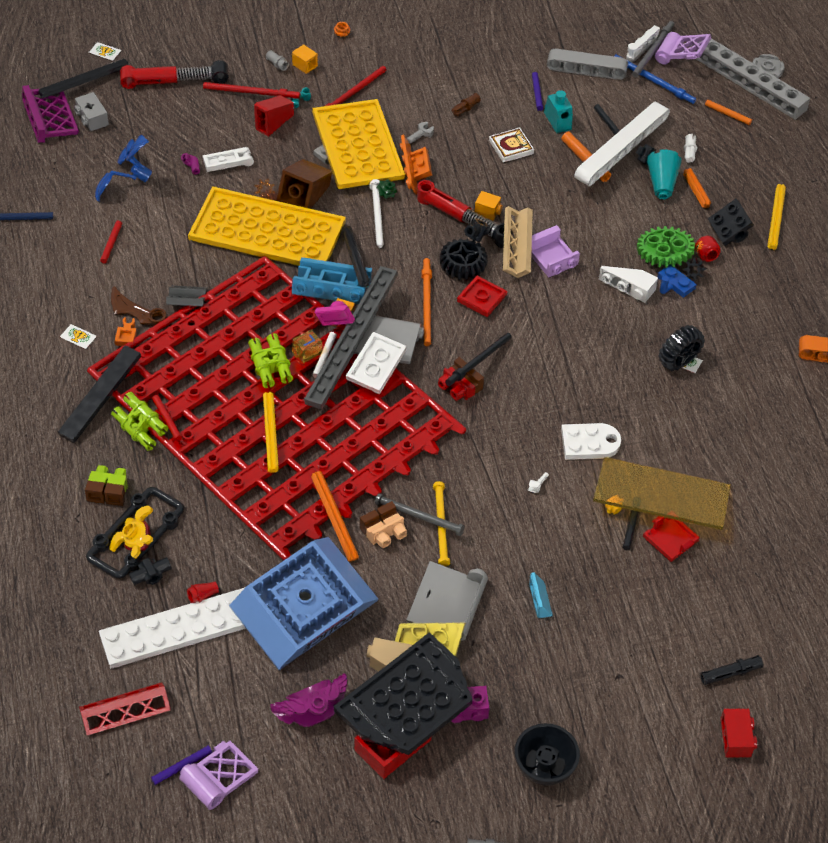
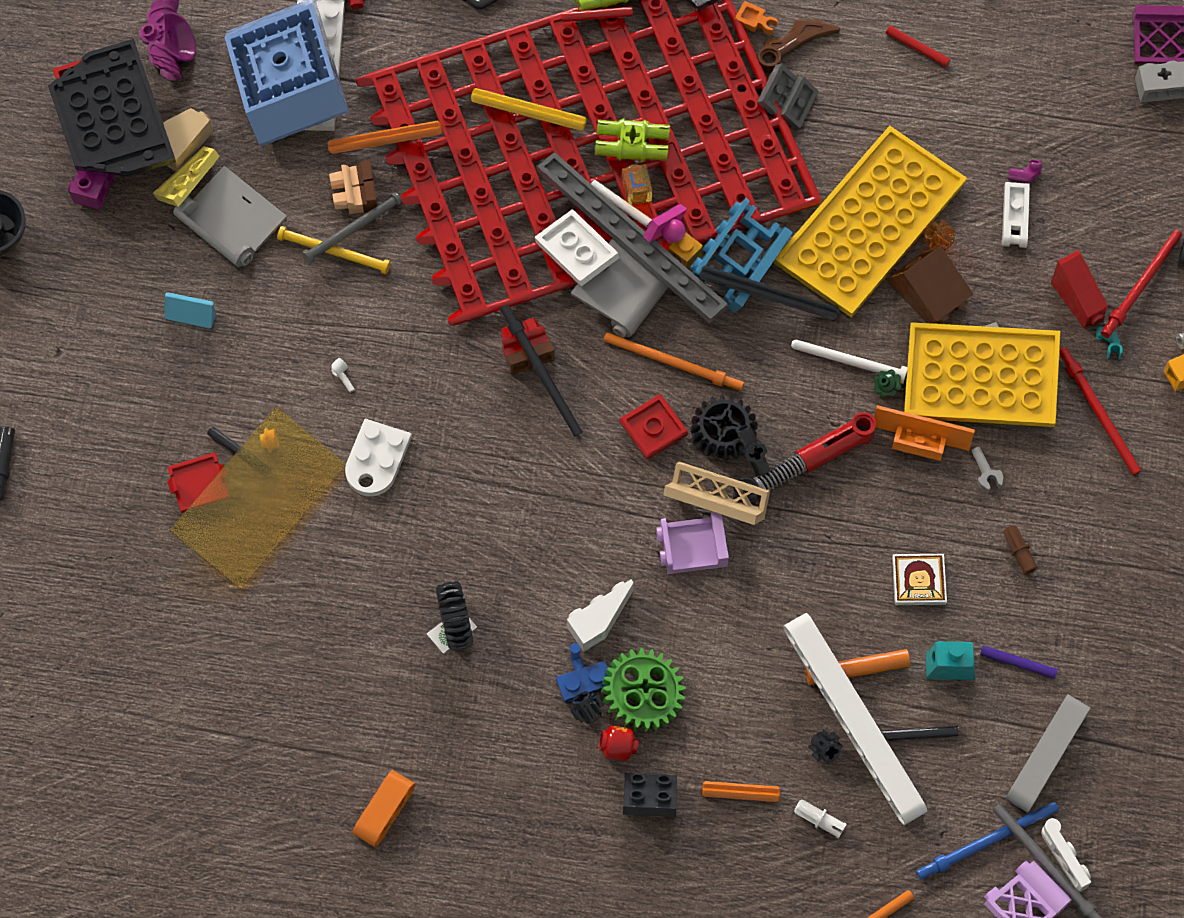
camera: 115 degrees right, 15 degrees up
(139, 171) = (1025, 101): blue plant -> none
(488, 205) = (807, 495): light orange brick -> none
(664, 172) = (775, 748): teal cone -> none
(776, 217) = (645, 875): yellow axle -> none

